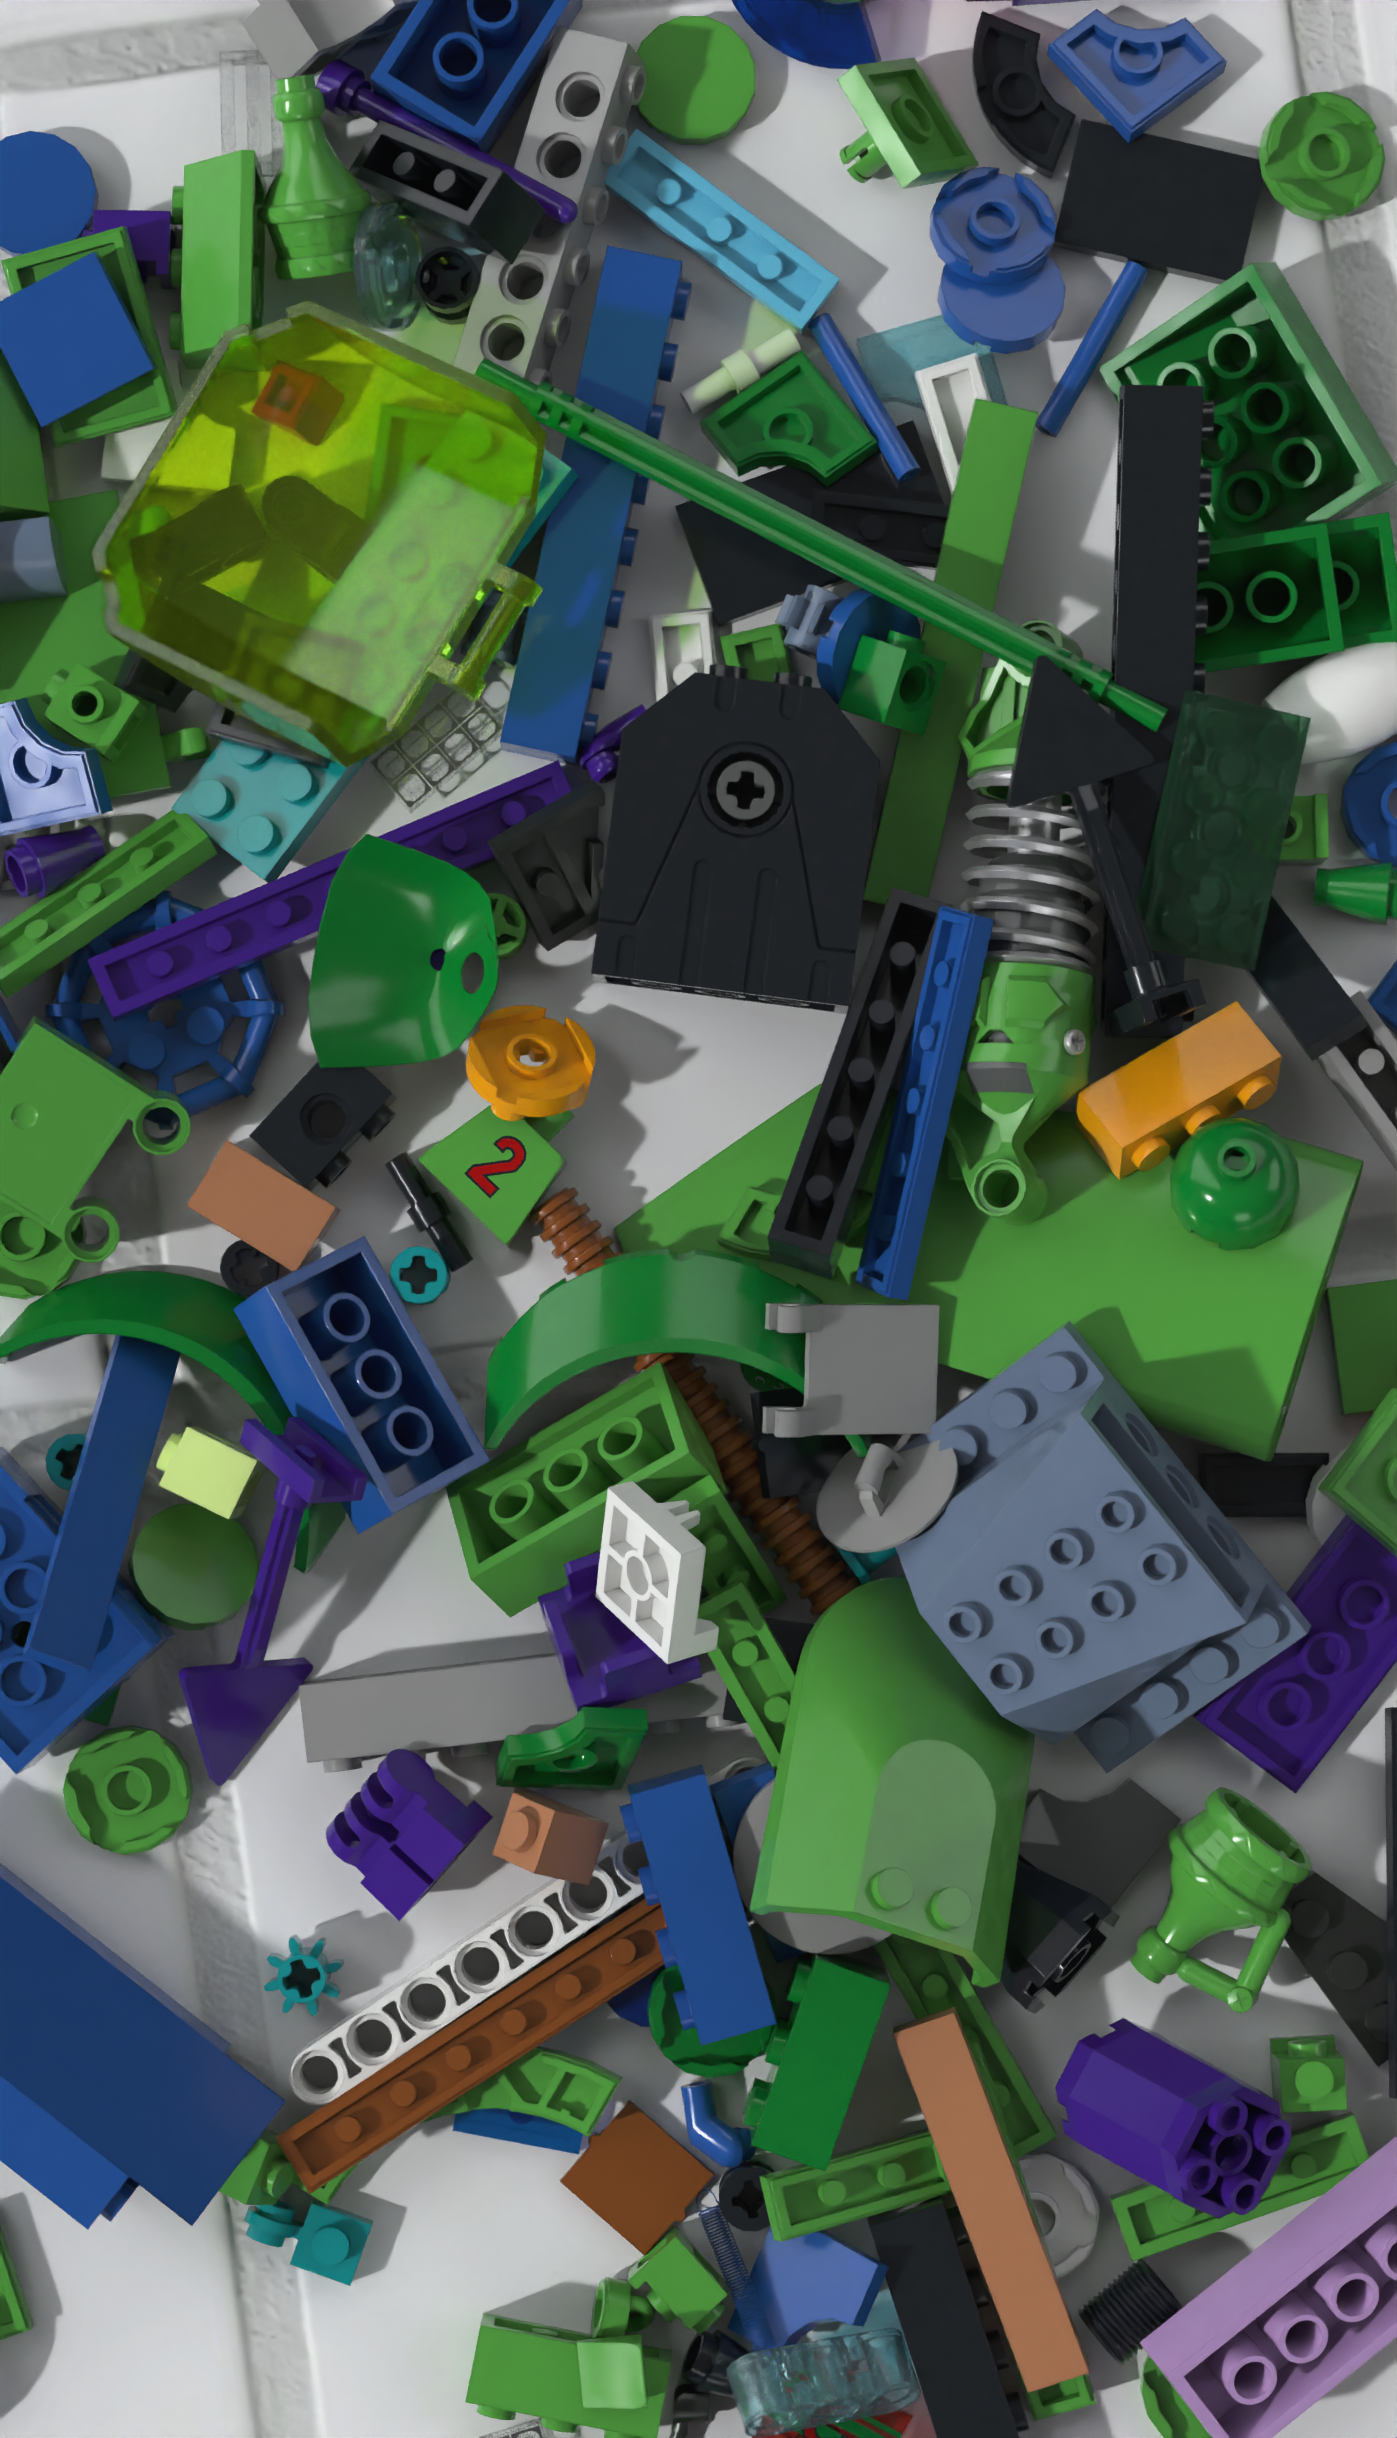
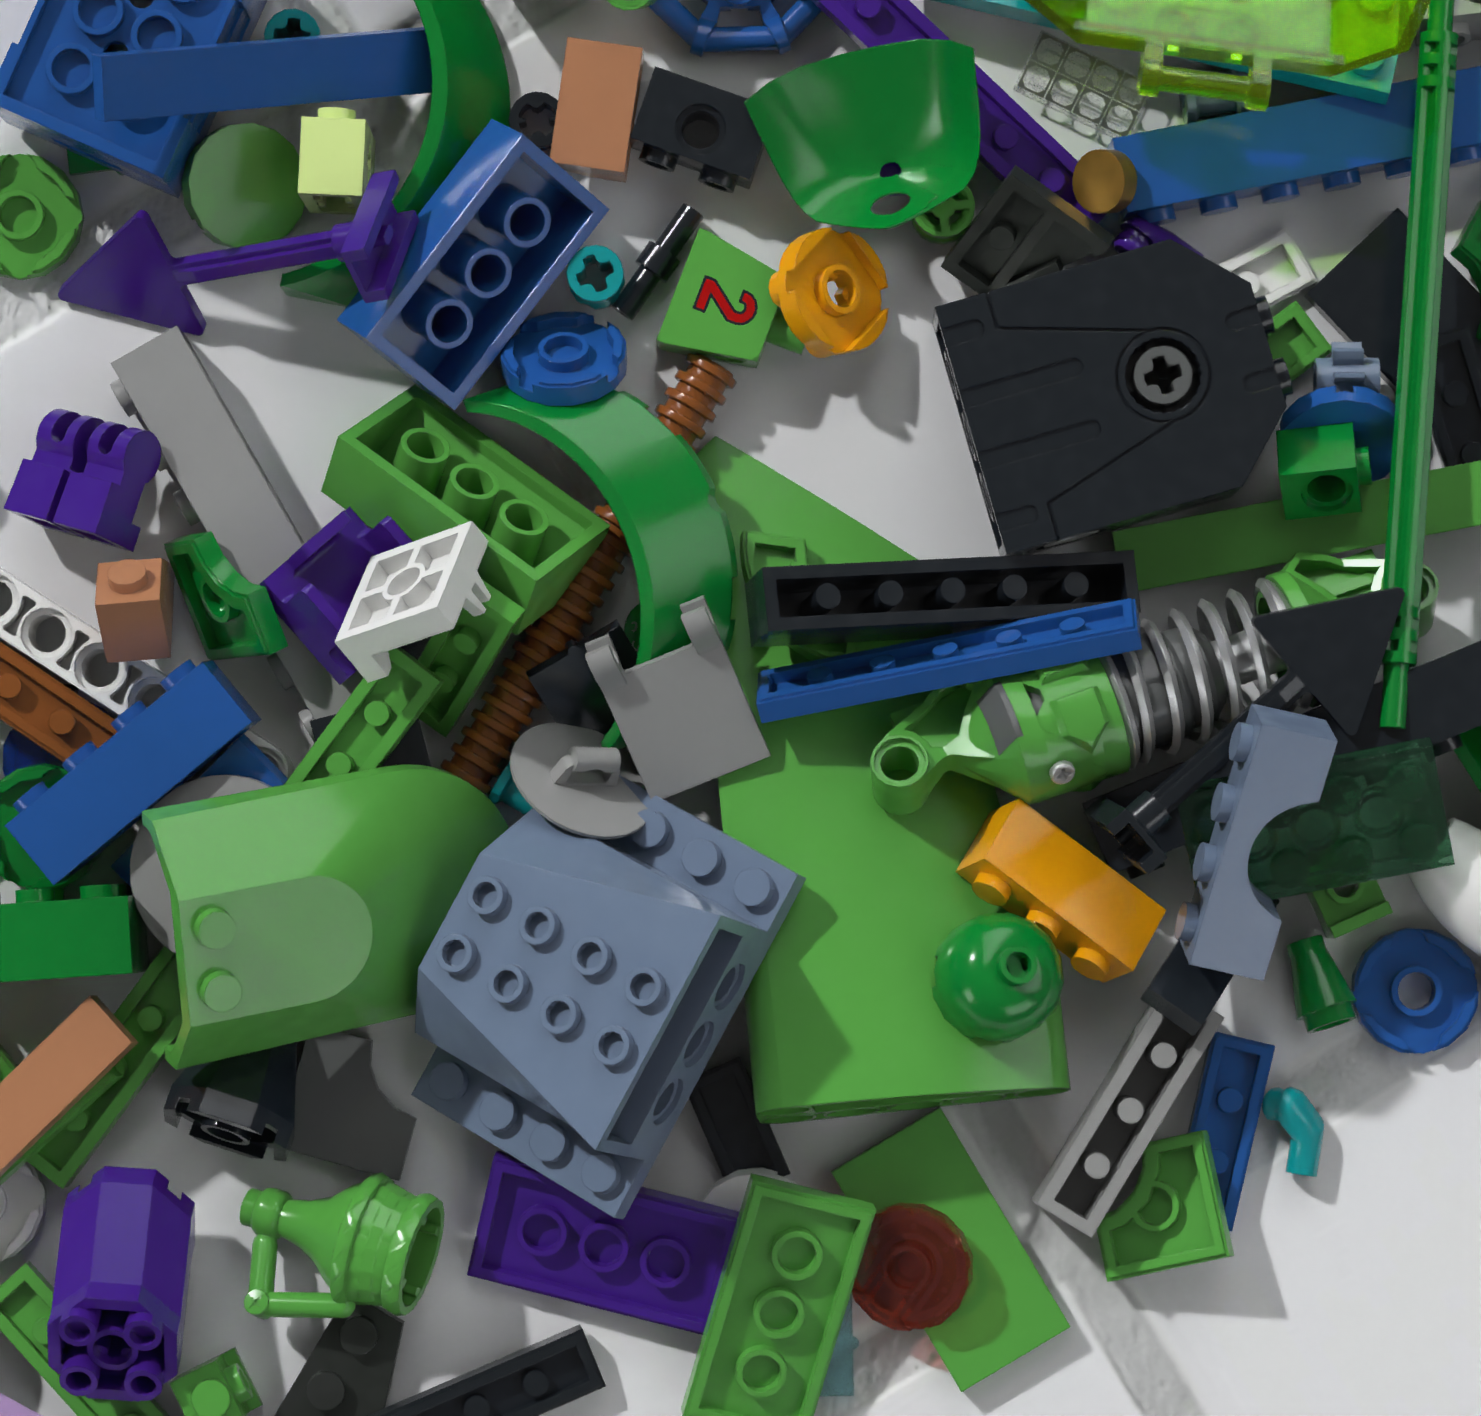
camera: 60 degrees right, 0 degrees up
(485, 1337) = (564, 359): none -> blue tile
(537, 765) = (1104, 181): none -> pearl gold tile
(1157, 842) = (1276, 766): none -> sand blue arch

